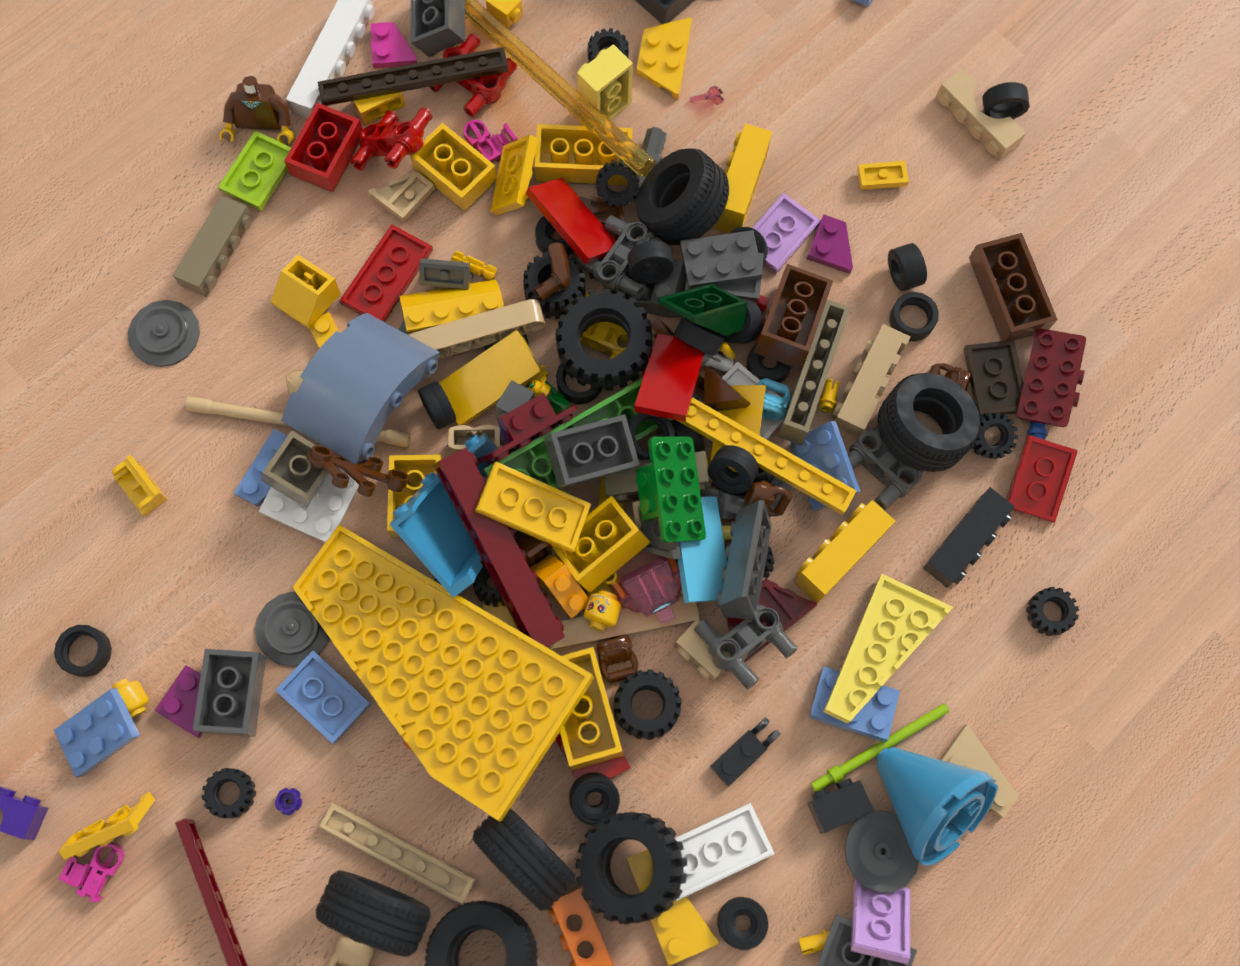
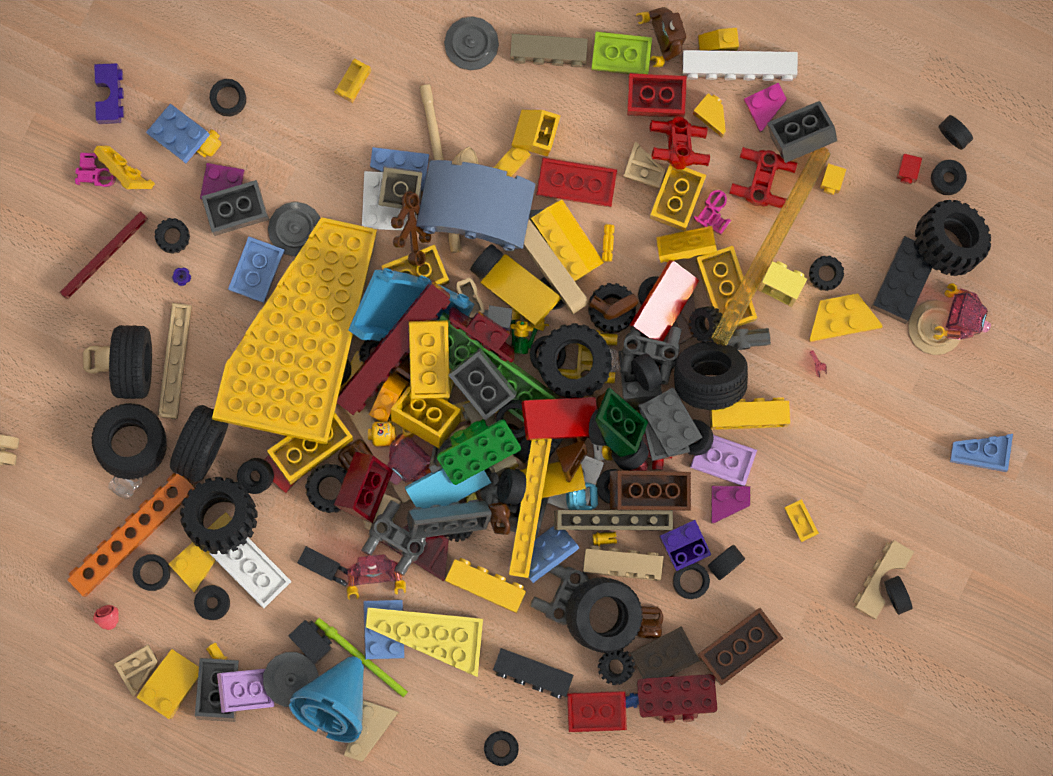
camera: 75 degrees right, 10 degrees up
(291, 60) = (719, 40): none -> yellow slope
(413, 76) = (738, 137): dark brown tile -> none
(445, 273) = (588, 226): dark grey panel -> none
(664, 656) = (363, 486): none -> dark red slope
(774, 690) = (373, 570): none -> clear pink torso
(871, 305) = (685, 545): none -> dark purple slope

